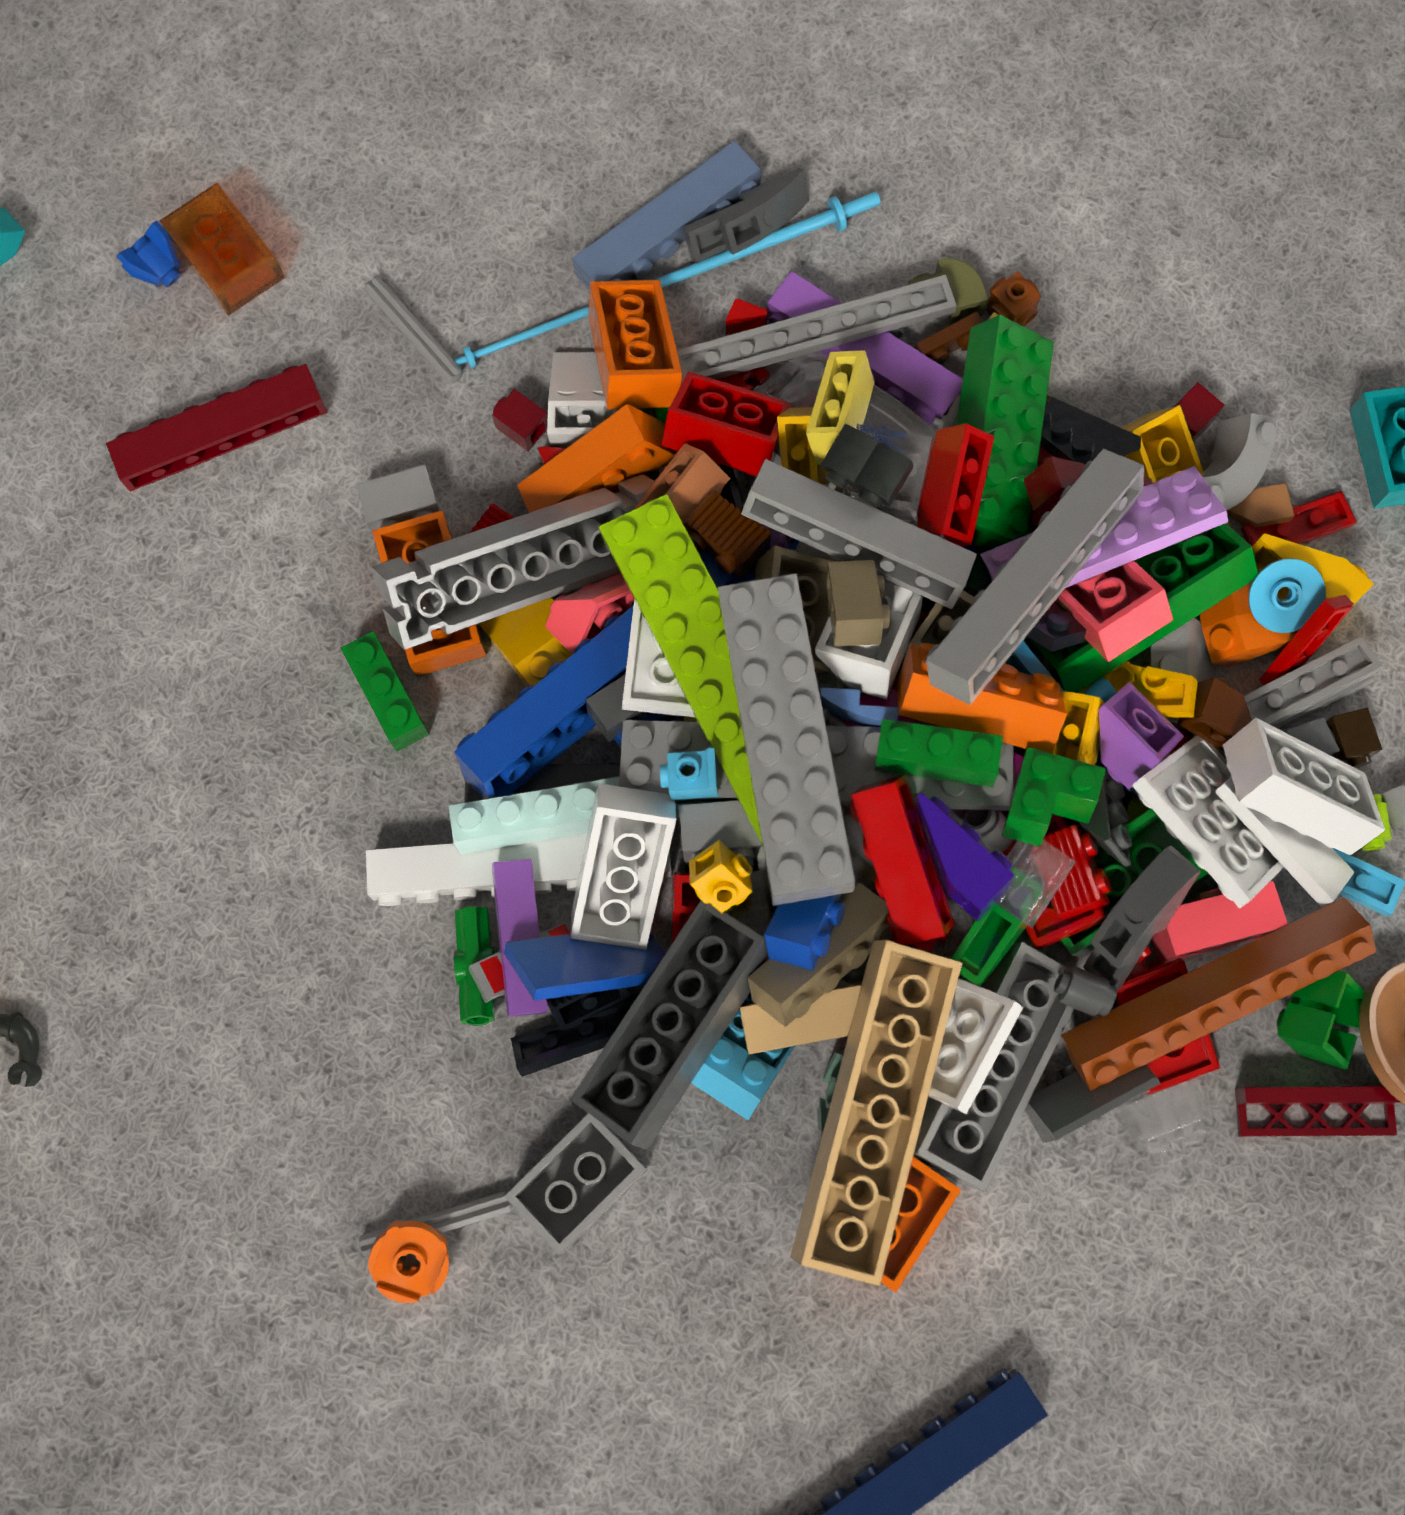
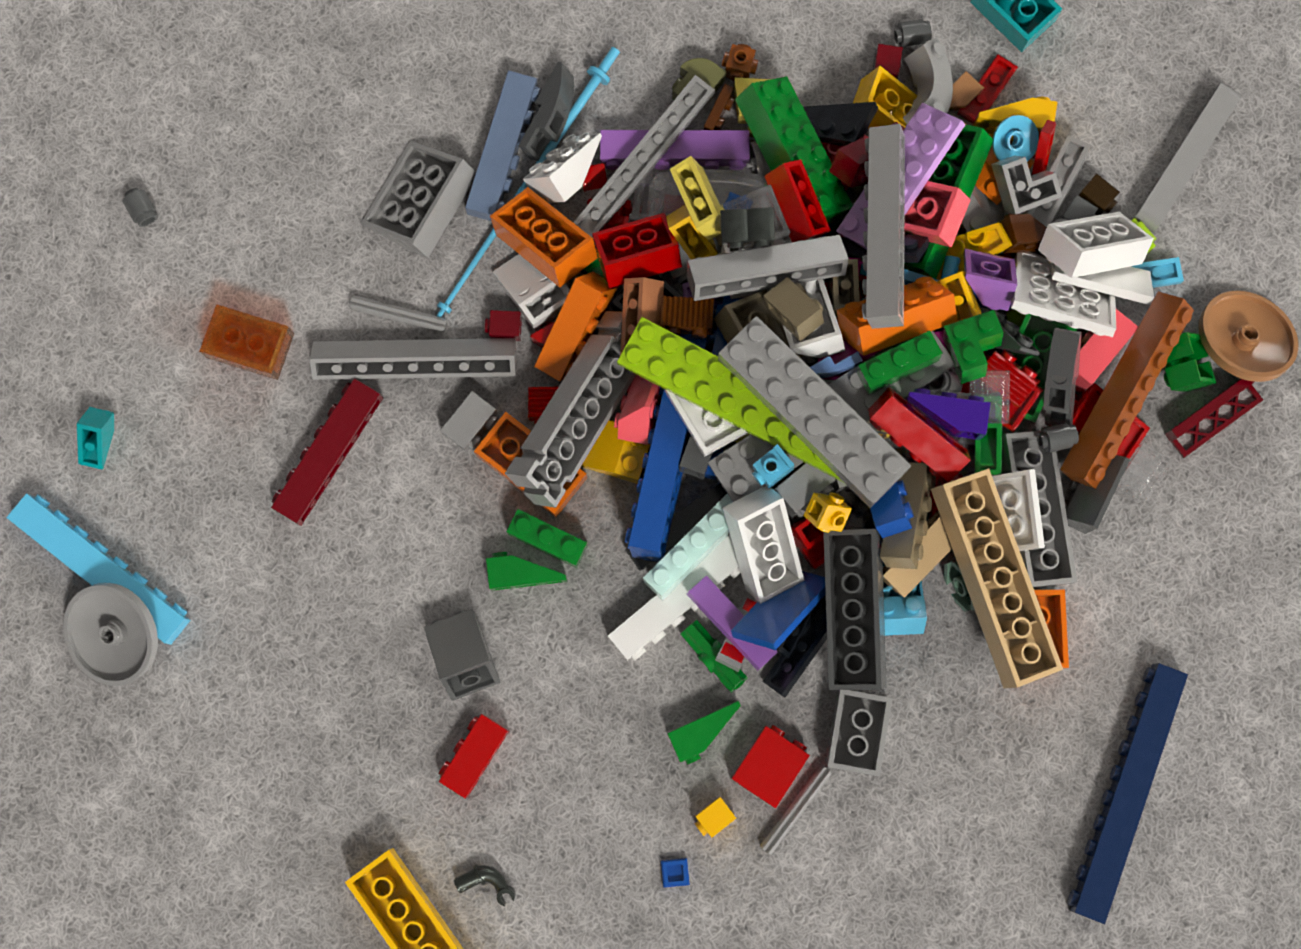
camera: 40 degrees left, 5 degrees up
(111, 882) = (472, 755): none -> red brick
(152, 258) = (208, 376): blue brick -> none
(186, 756) = (461, 654): none -> dark grey slope
(224, 36) = (139, 207): none -> dark grey brick
(237, 1193) = (675, 872): none -> blue tile
(315, 701) = (514, 572): none -> green slope
(330, 1160) = (714, 817): none -> yellow brick
(384, 1046) = (697, 736): none -> green slope
(390, 388) = (413, 358): none -> light grey brick
(404, 1239) = (784, 835): orange plate -> none
(443, 1146) = (771, 765): none -> red brick
(533, 220) = (419, 198): none -> light grey slope
(714, 287) = (564, 168): none -> white slope
(1249, 656) = (1021, 190): none -> light grey brick
(1250, 397) = (912, 32): none -> dark grey brick

